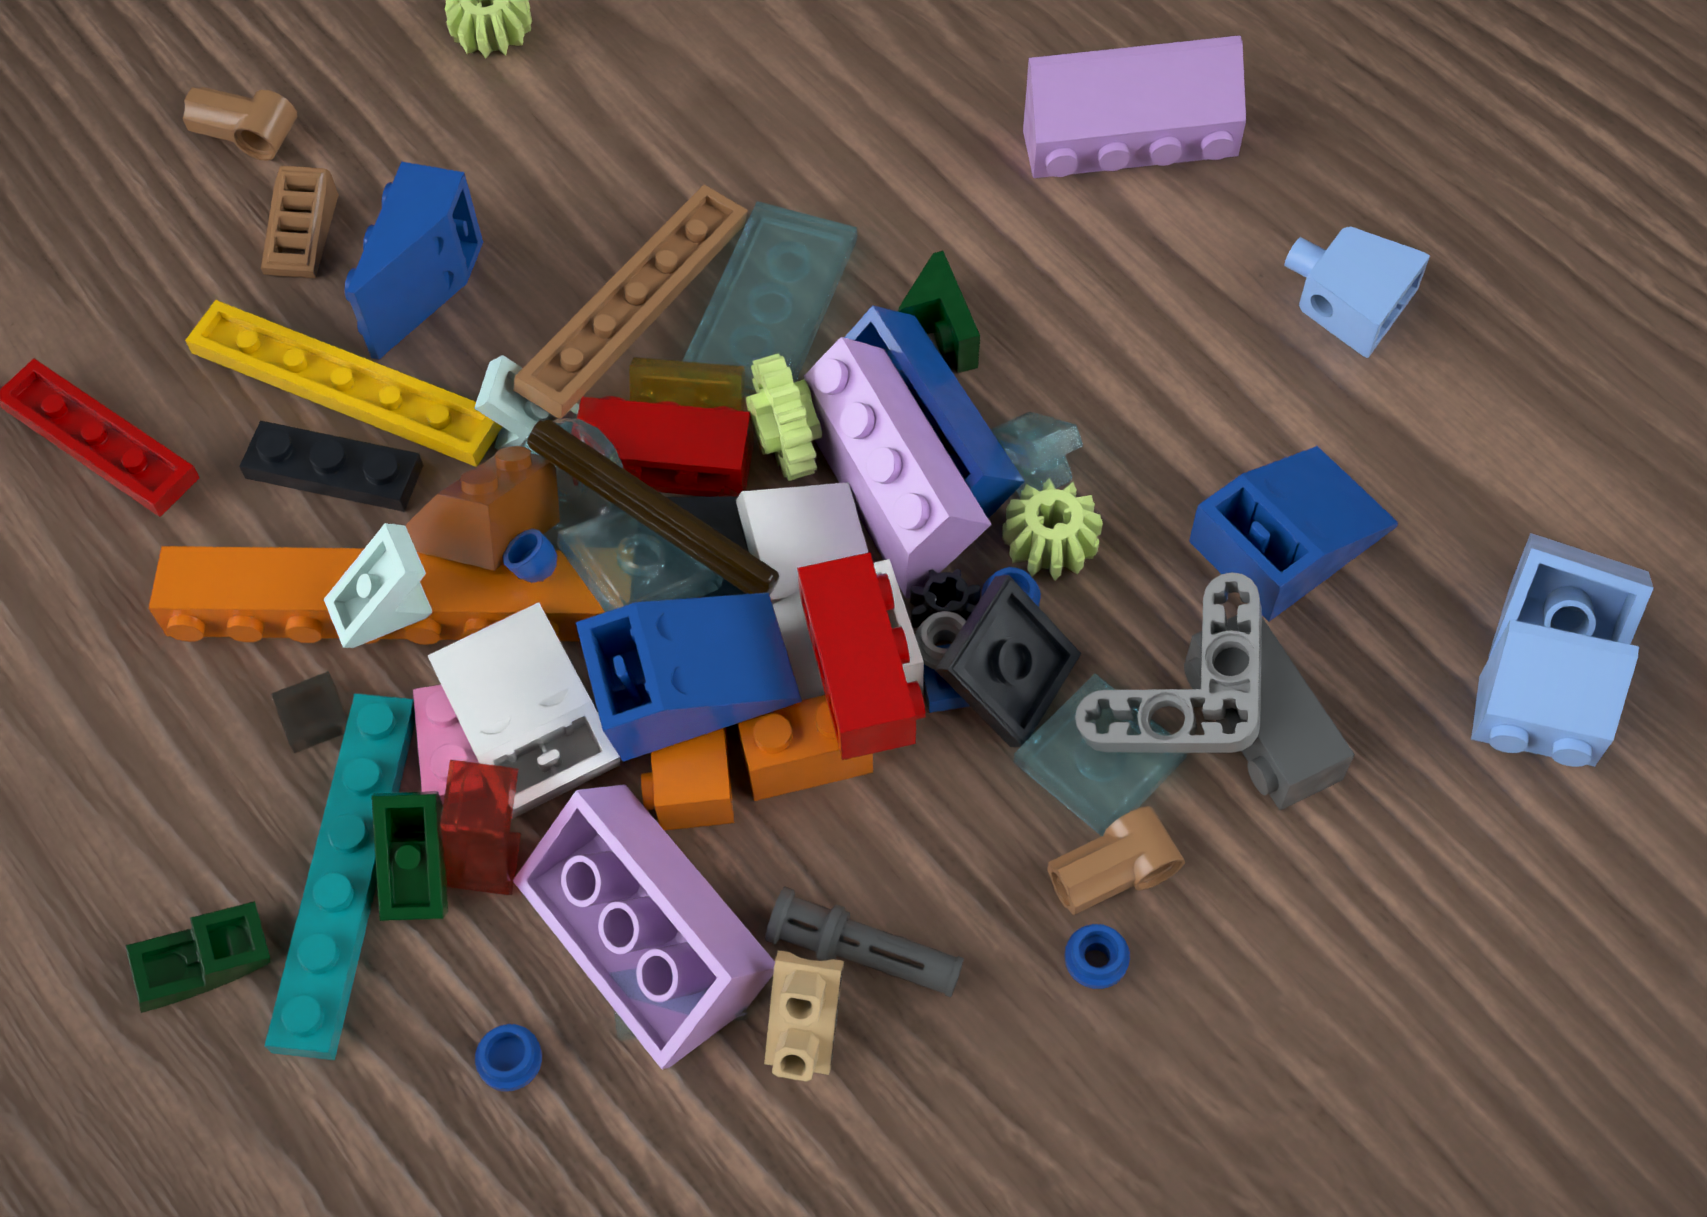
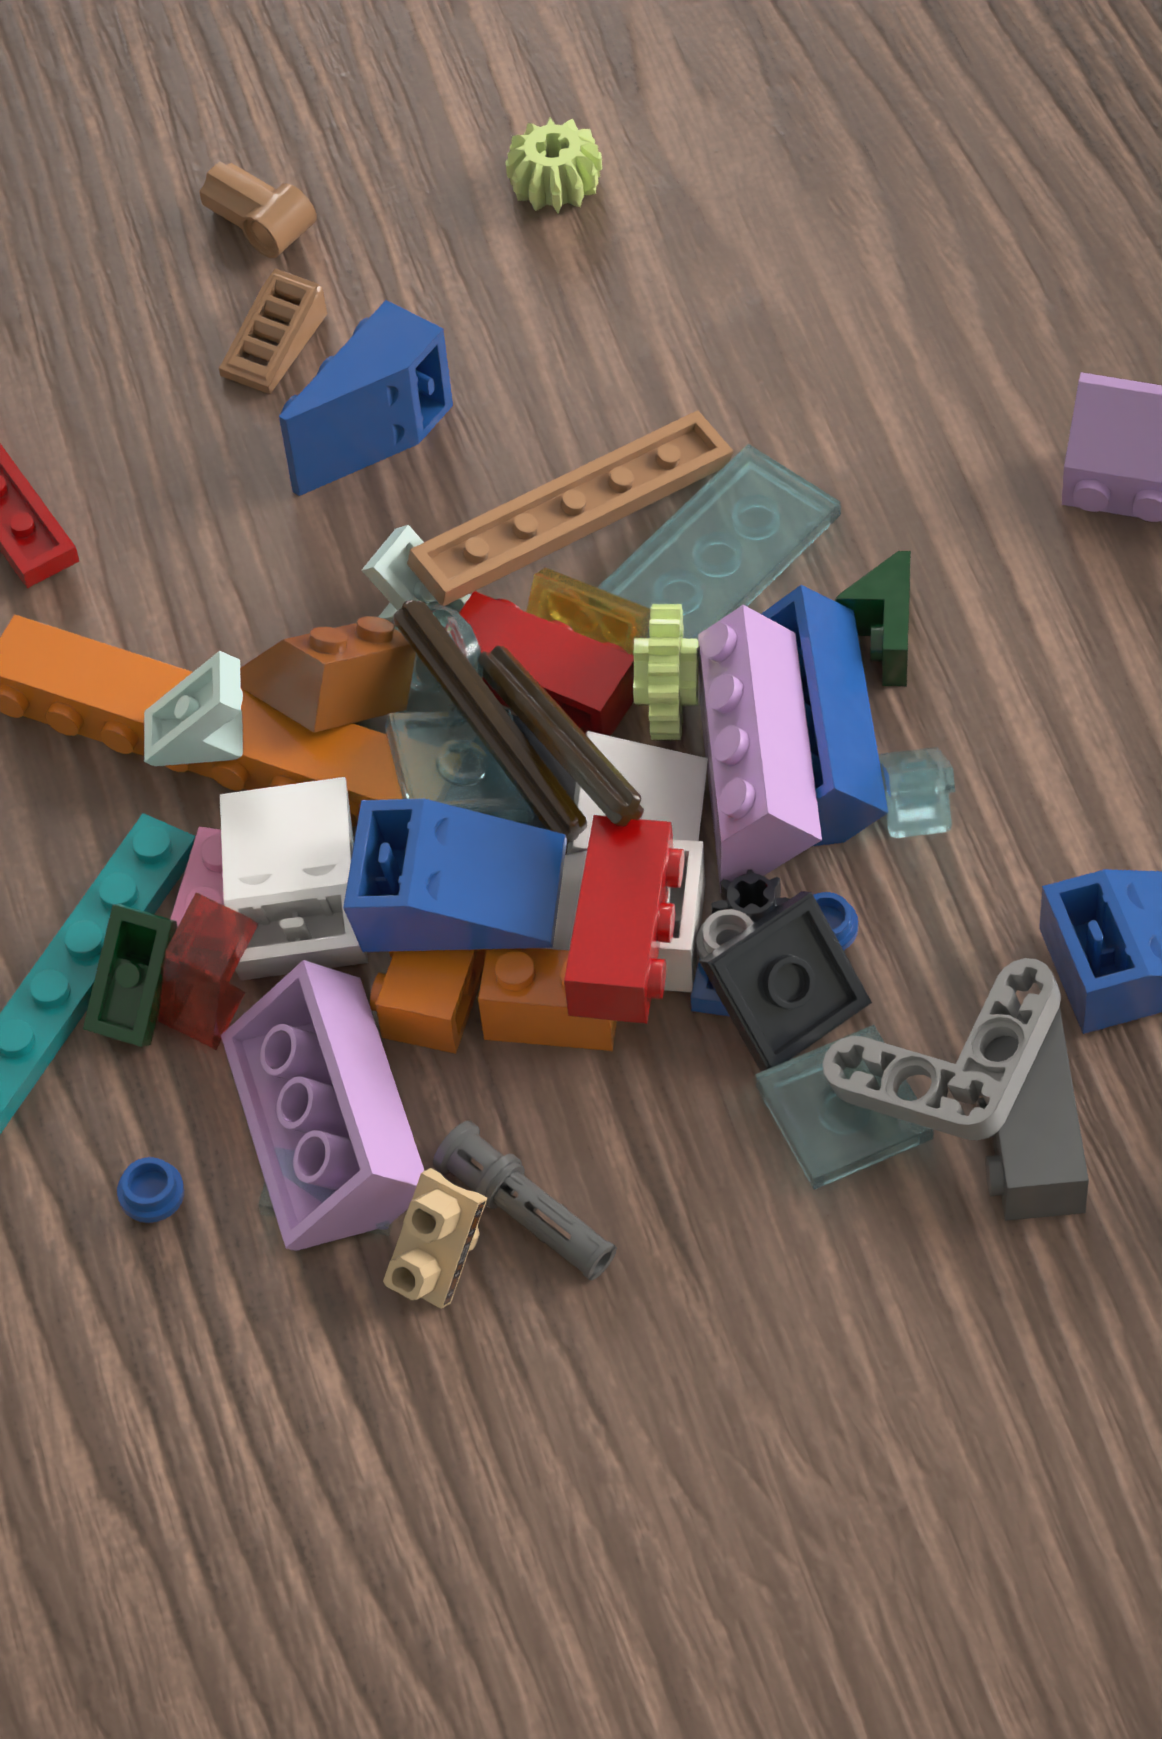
camera: 25 degrees right, 5 degrees down
(311, 712) = (96, 818): clear smoke tile -> none
(332, 466) = (210, 588): black plate -> none
(343, 382) = (251, 507): yellow plate -> none
(530, 556) = (354, 730): blue hinge -> none
(732, 505) = (561, 736): none -> dark brown axle
(1052, 529) = (897, 869): yellowish green gear -> none
(1097, 938) = (748, 1272): blue plate -> none
(1129, 854) = (826, 1206): medium nougat piece -> none

